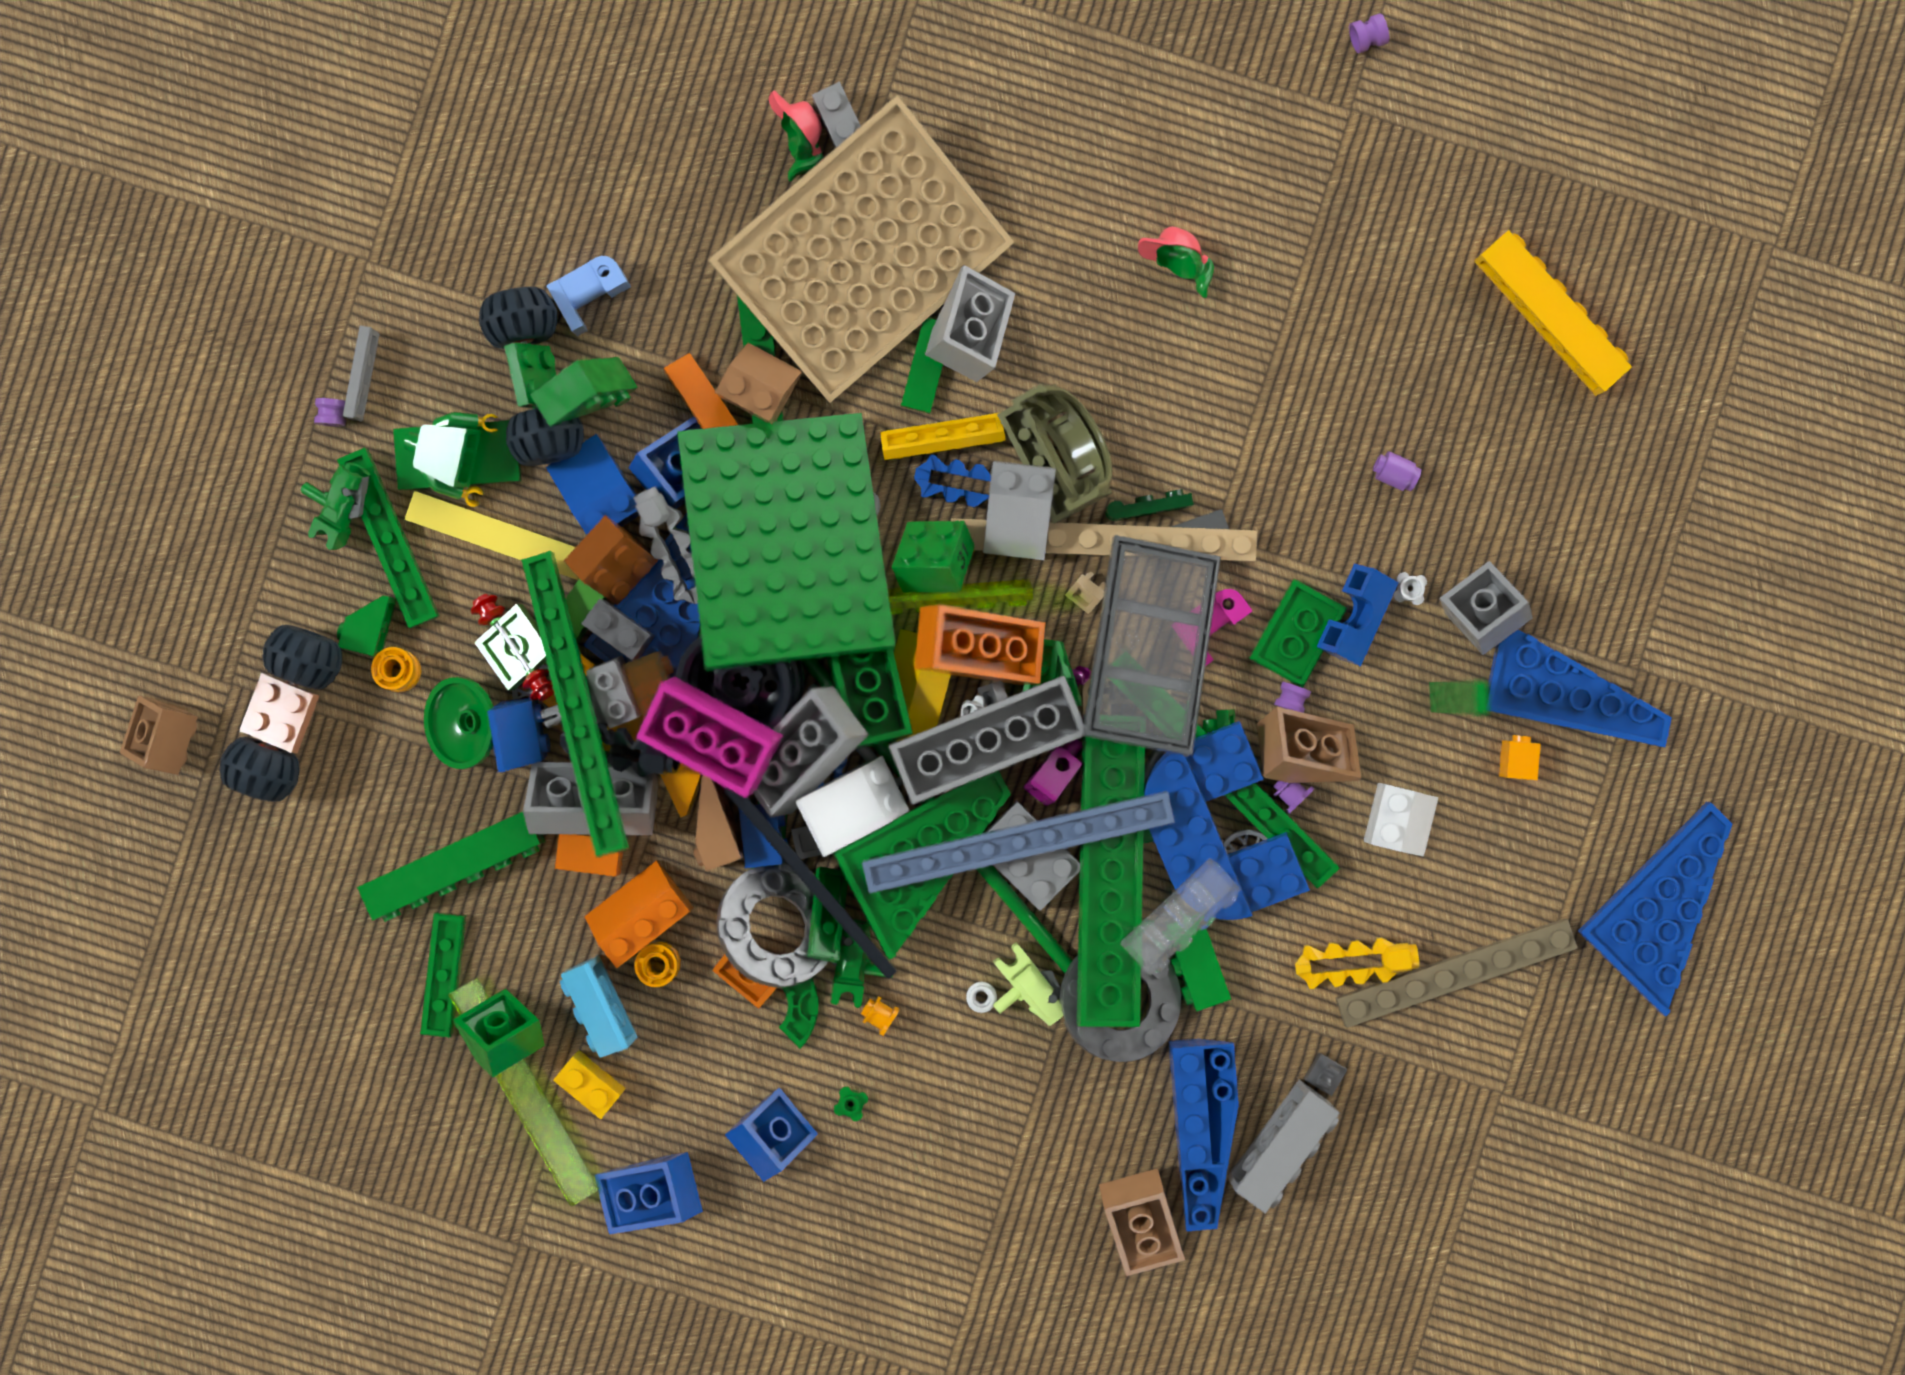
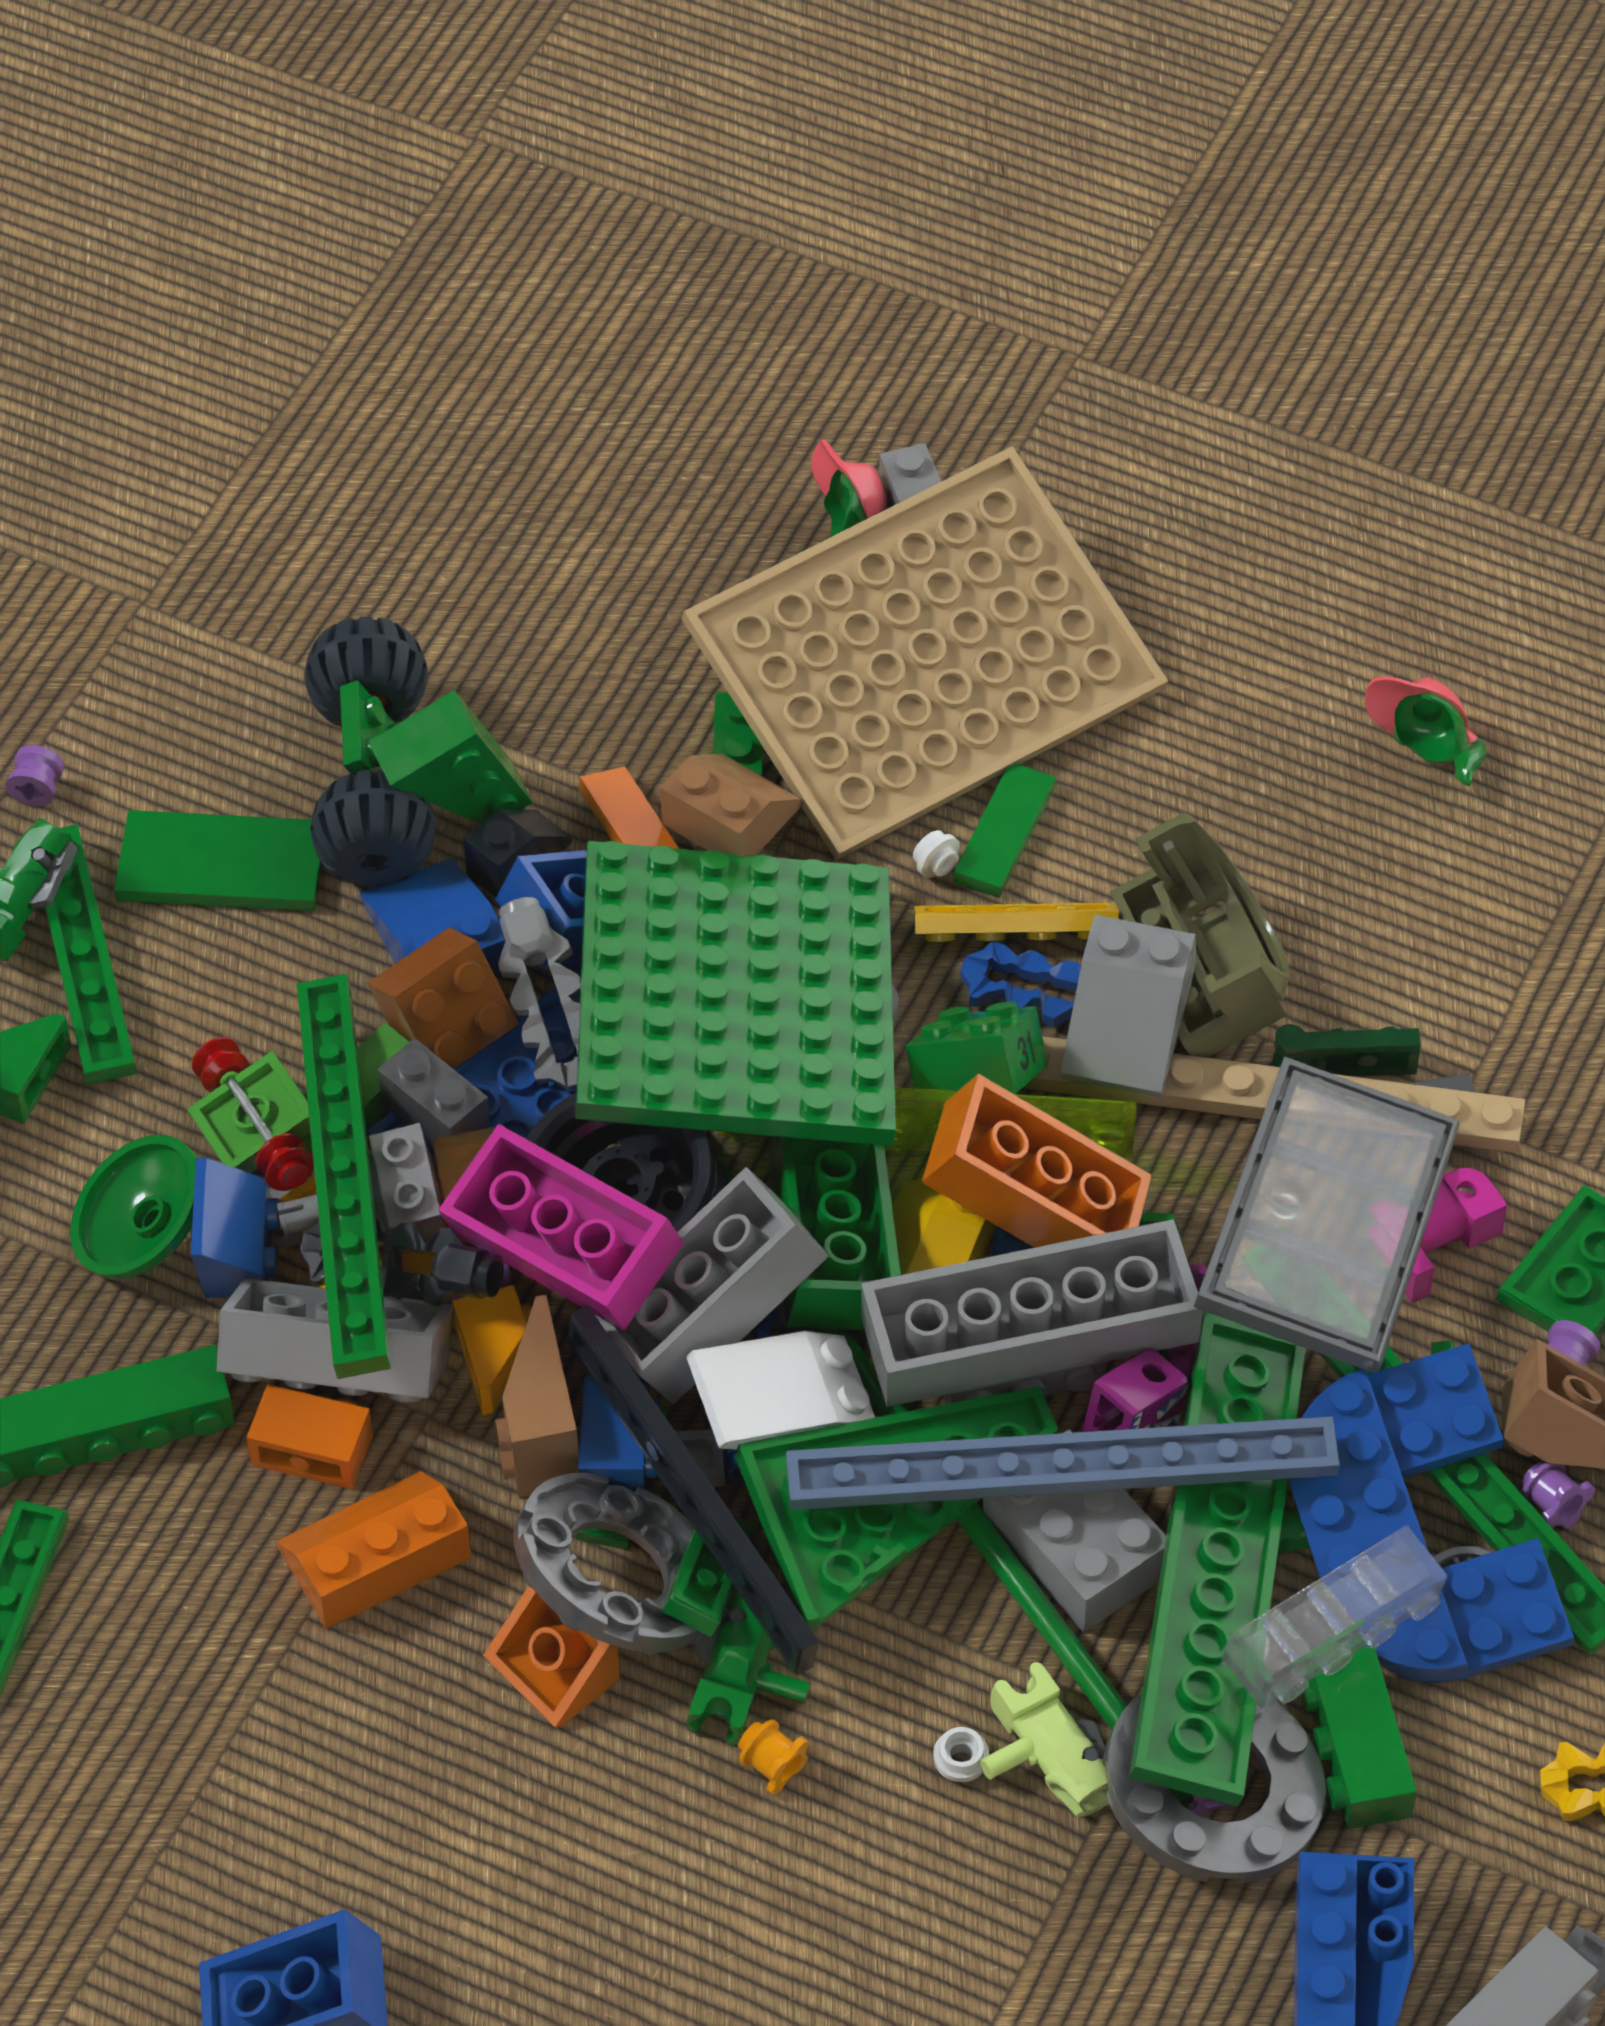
camera: 10 degrees right, 35 degrees down
(361, 373) = (96, 732): light grey tile -> none
(382, 669) = (47, 1131): light orange wheel -> none
(448, 453) = (212, 834): torso -> none
(485, 531) = (231, 961): light yellow tile -> none
(500, 1032) = (92, 1684): green slope -> none
(536, 1114) = (106, 1804): clear neon green tile -> none
(585, 286) = (485, 658): light blue piece -> none
(589, 1084) = (227, 1796): yellow brick -> none
(598, 1007) = (270, 1668): medium azure slope -> none
(634, 423) = (502, 838): none -> black slope
(645, 971) = (384, 1601): light orange wheel -> none
(771, 1135) = (537, 1926): blue slope -> none
(801, 1012) = (633, 1732): green tile -> none
(857, 1098) = (694, 1914): green plate -> none
(889, 395) = (936, 854): none -> white plate
(971, 325) = (1082, 774): light grey slope -> none
(1086, 593) = (1222, 1159): tan tile -> none

